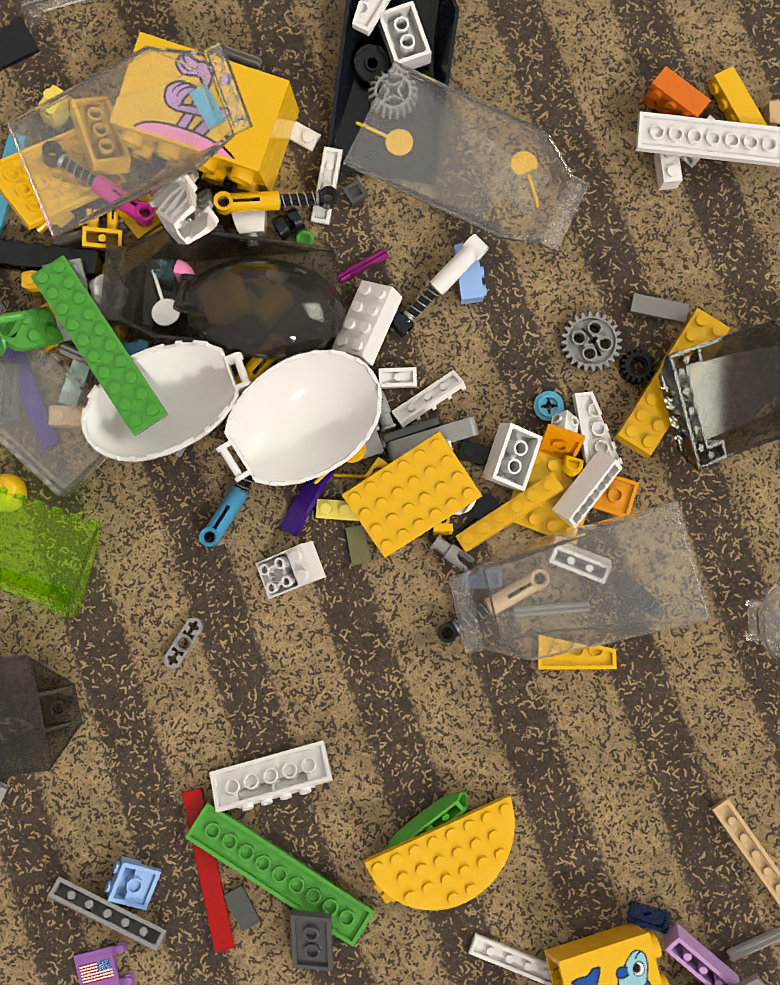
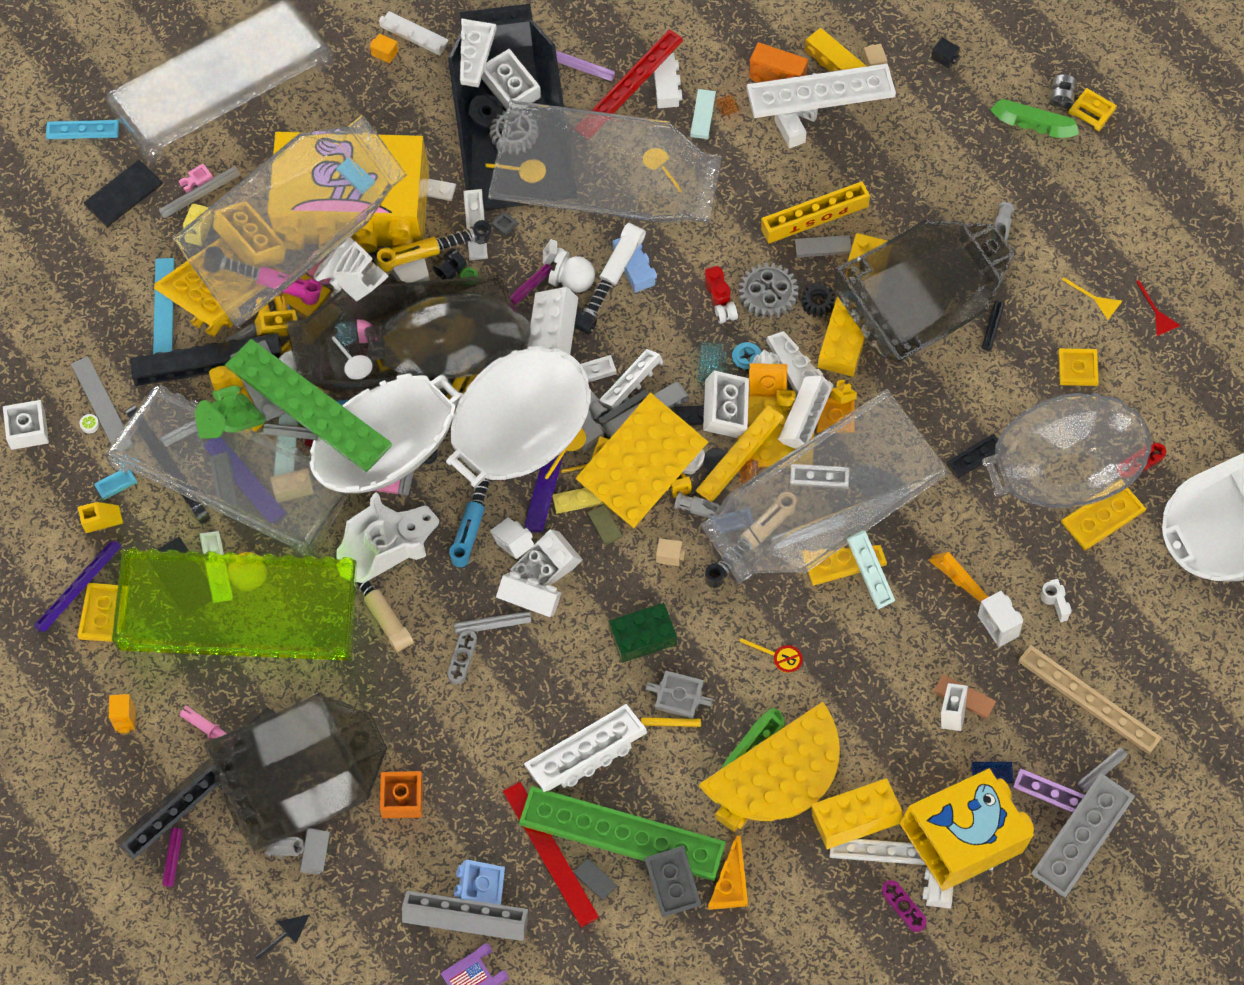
camera: 15 degrees left, 20 degrees down
(71, 71) = (199, 192): none -> light grey axle
(74, 55) = (196, 177): none -> bright pink plate
(83, 772) = (401, 794): none -> orange brick
(127, 601) = (396, 634): none -> tan piece
(141, 503) = (381, 537): none -> white piece
(222, 615) = (493, 622): none -> light grey axle
(262, 600) = (529, 594): none -> white brick
(263, 537) = (512, 537): none -> white brick
(360, 673) = (642, 632): none -> dark green brick
(360, 768) = (671, 722): none -> yellow bar
(366, 956) = (731, 886): none -> light orange wing
(376, 745) = (679, 694): none -> light grey plate
(392, 239) = (550, 252): none -> white tile
(405, 268) = (572, 272): none -> white tile
(411, 595) = (670, 552): none -> tan brick
(484, 40) = (585, 66): none -> lavender axle
(489, 736) = (786, 658): none -> piece
(507, 924) = (856, 813): none -> yellow brick
(511, 404) = (710, 359): none -> clear light blue brick
(513, 532) = (748, 471): none -> clear orange tile
(533, 66) = (639, 73): none -> red tile
(541, 321) = (717, 286): none -> red brick
(542, 354) = (726, 312): none -> white wheel
(560, 80) = (667, 83): none -> white brick
(585, 127) = (703, 114): none -> light aqua tile
(598, 678) = (870, 569): none -> light aqua tile
(612, 125) = (727, 105): none -> clear orange tile
(630, 476) = (843, 392): none -> yellow tile
(634, 842) = (954, 707): none -> white slope
(647, 829) = (975, 701): none -> nougat tile
(664, 271) = (815, 212): none -> yellow brick
(681, 705) = (959, 576): none -> light orange wing
(709, 767) = (1000, 618): none -> white brick
(738, 580) = (972, 456): none -> black plate
(771, 769) = (1062, 608): none -> white plate

